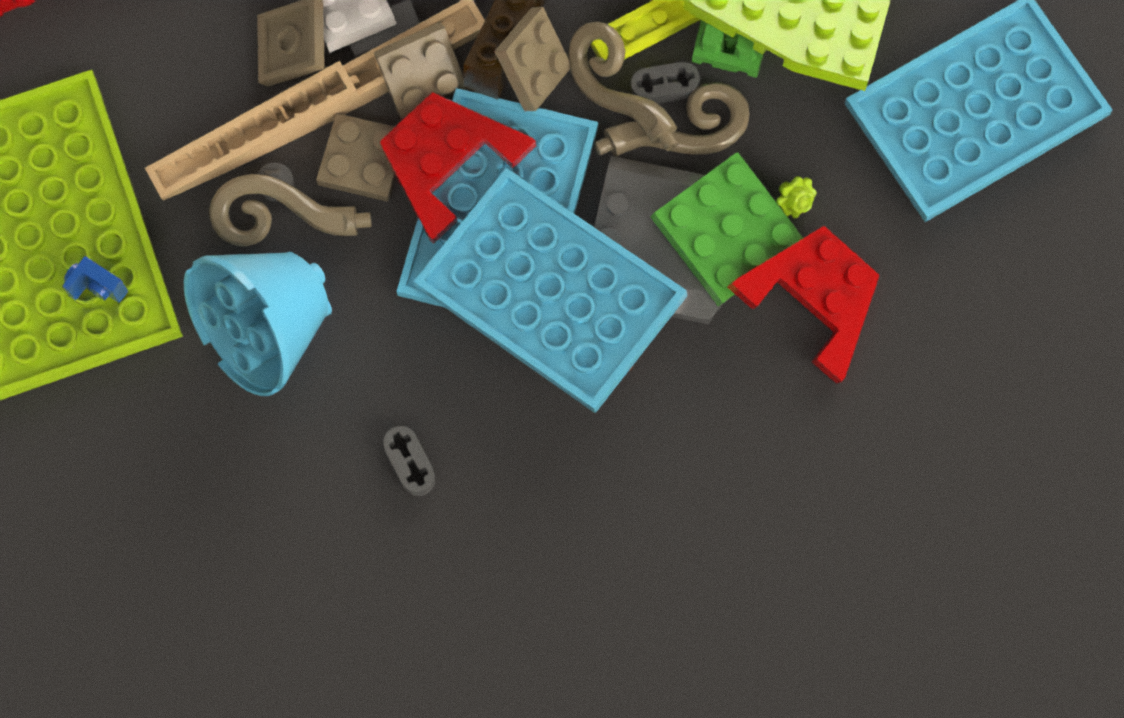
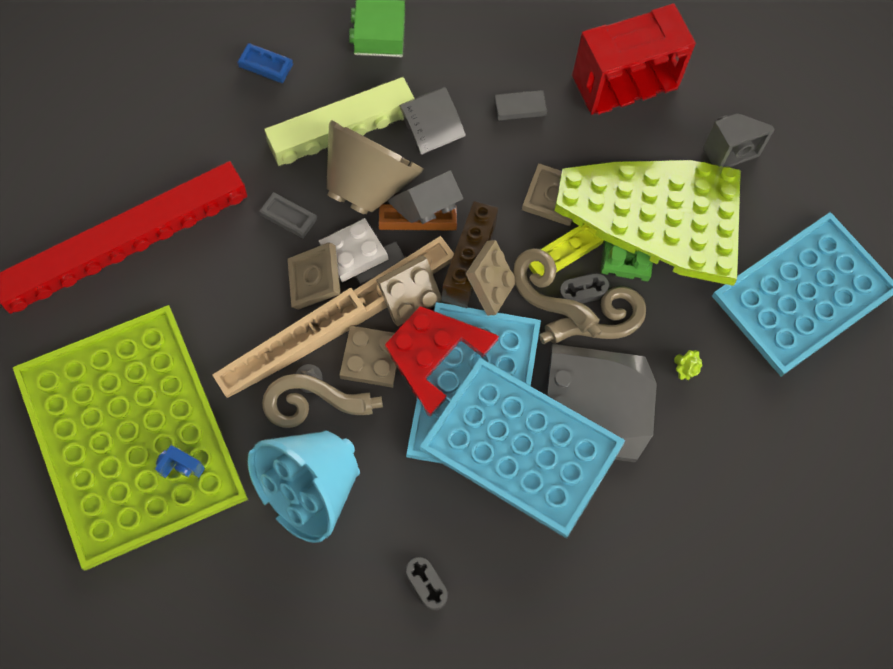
camera: 10 degrees left, 5 degrees down
(725, 226) = (644, 392): bright green plate -> none
(827, 282) = (720, 426): red wing -> none

